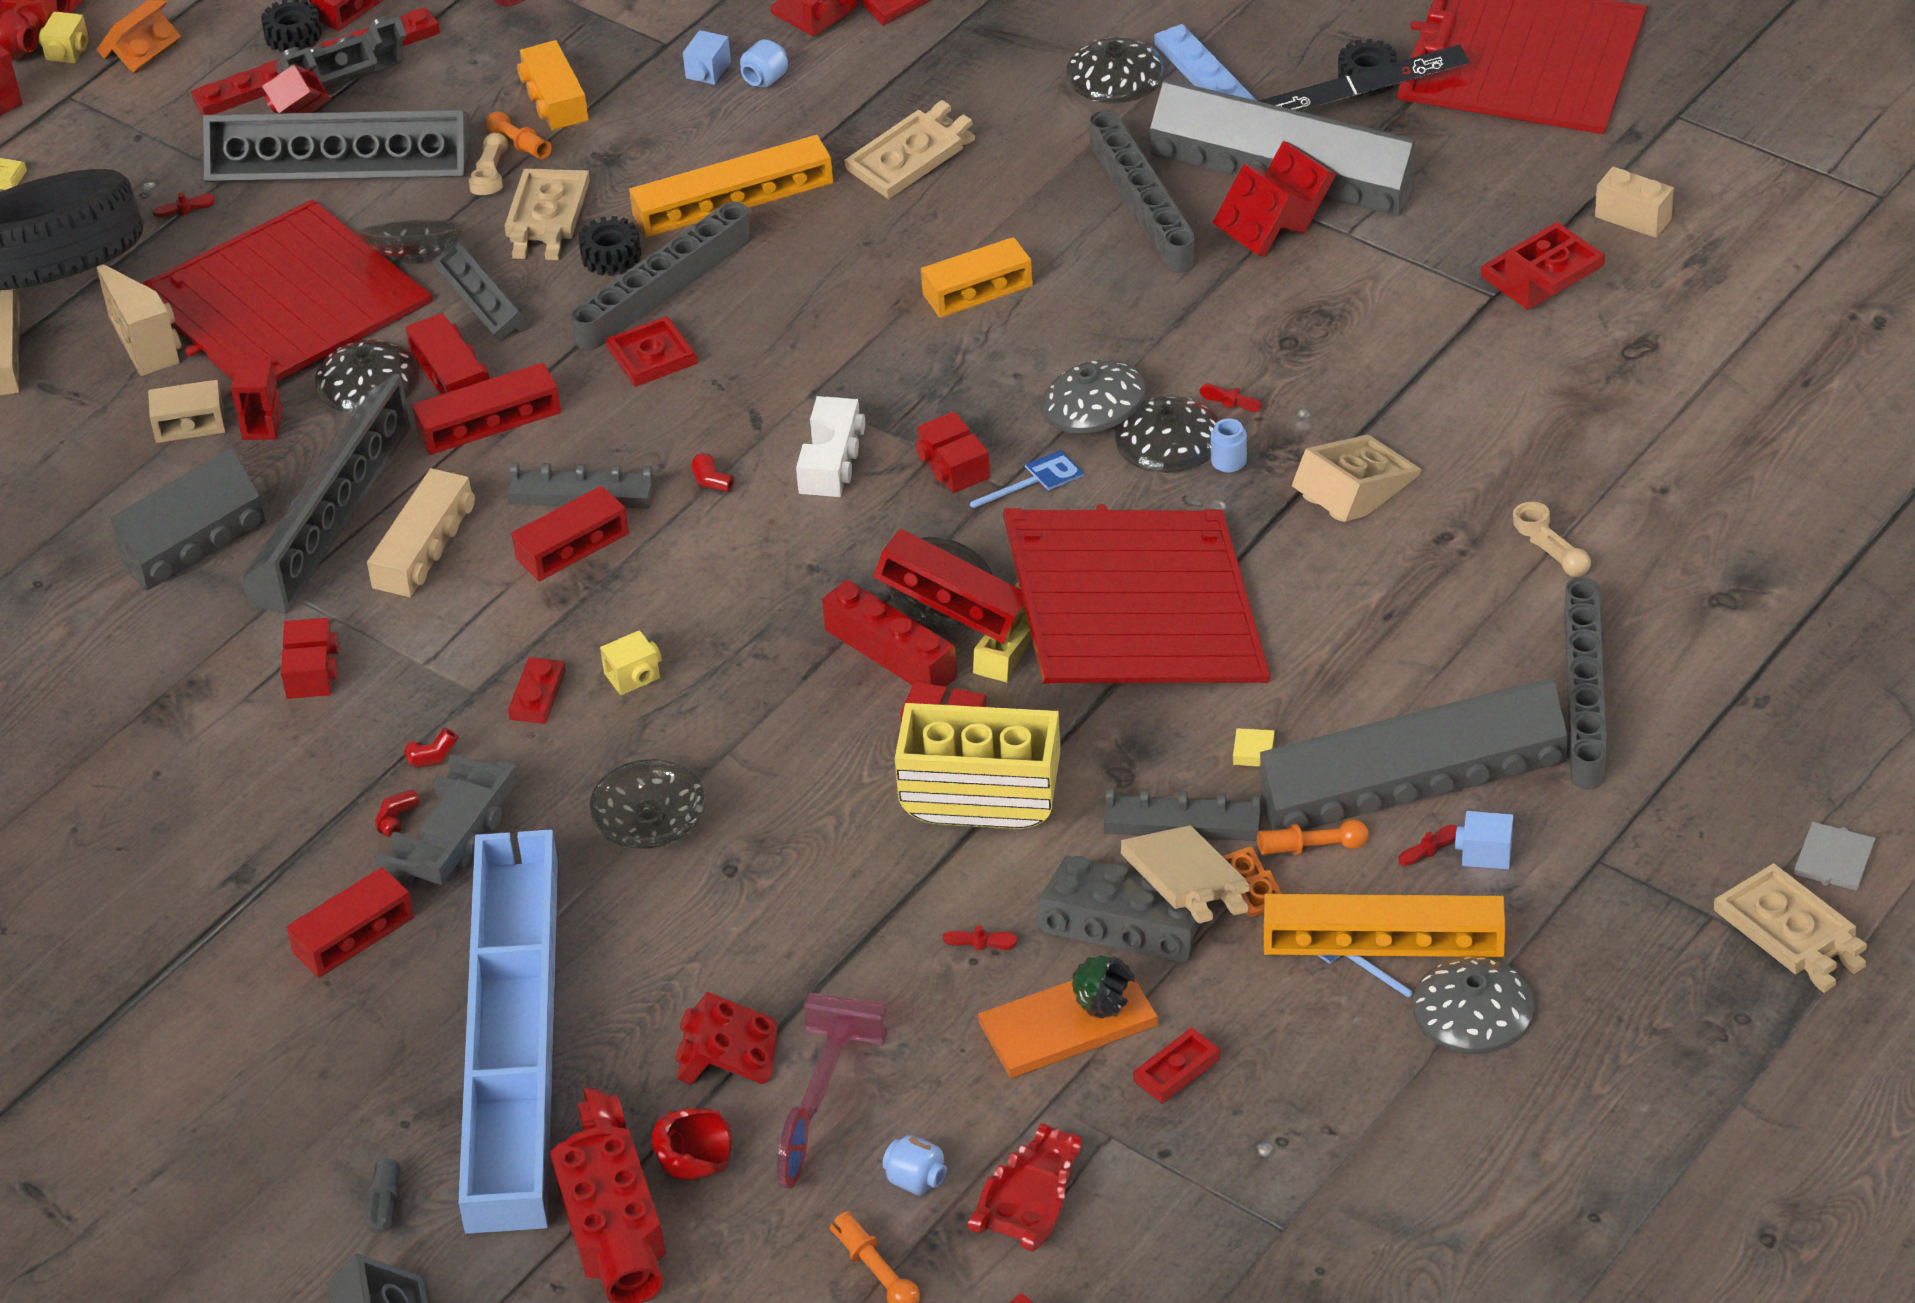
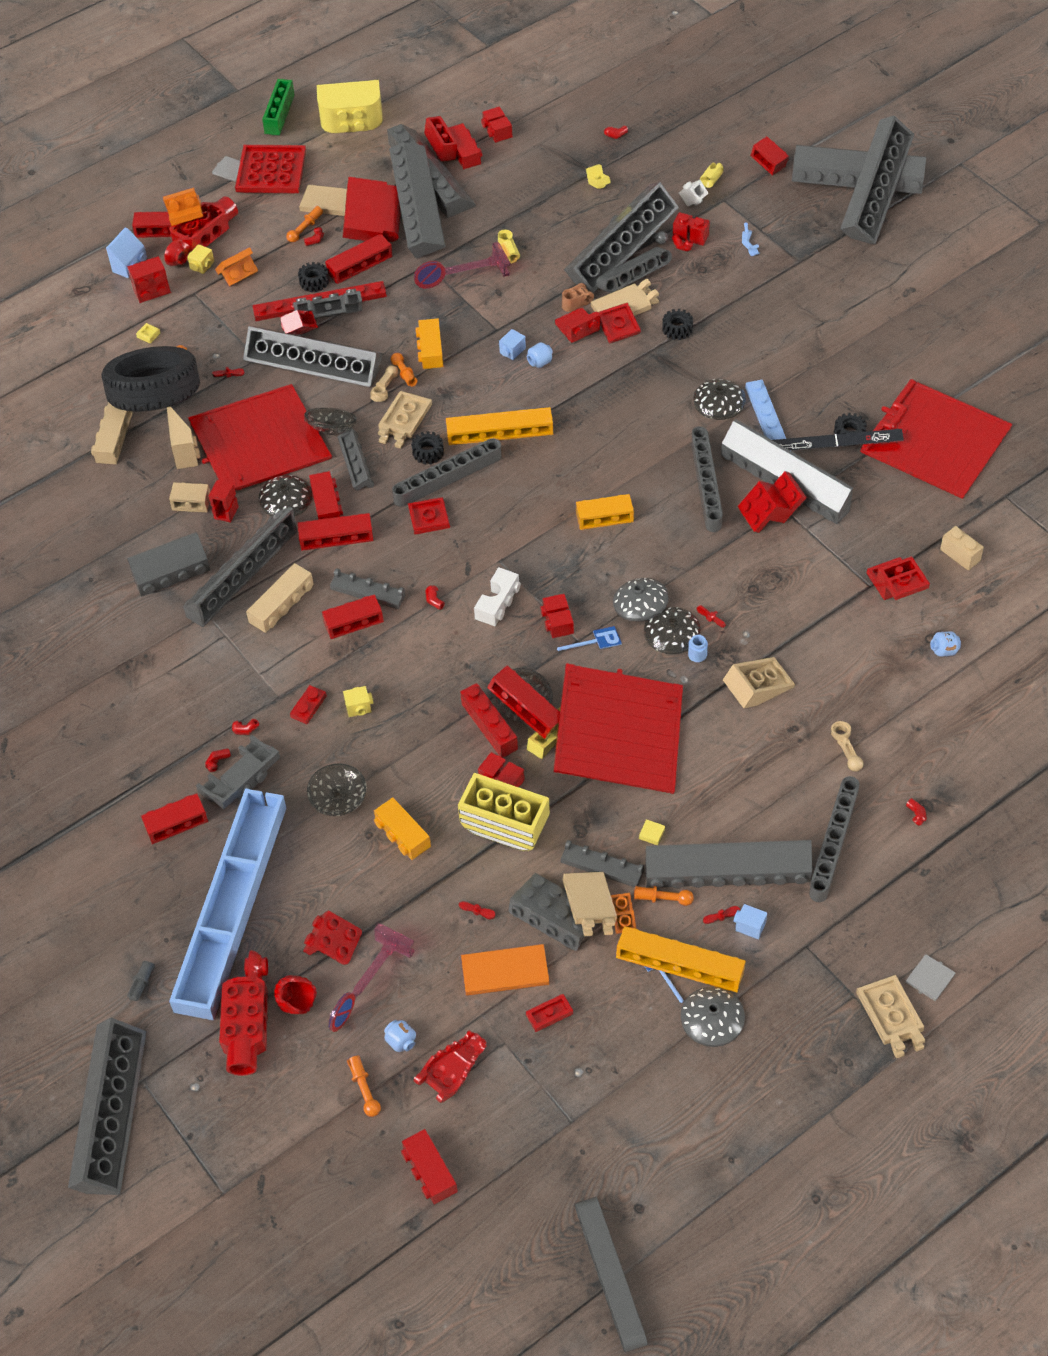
camera: 15 degrees right, 10 degrees up
(308, 658) = (203, 662): red piece -> none
(792, 841) = (401, 829): none -> light orange brick
(910, 149) = (597, 424): tan tile -> none
(1100, 985) = (523, 958): piece -> none
(1662, 349) = (945, 643): none -> light blue head
(1713, 608) = (919, 811): none -> red arm

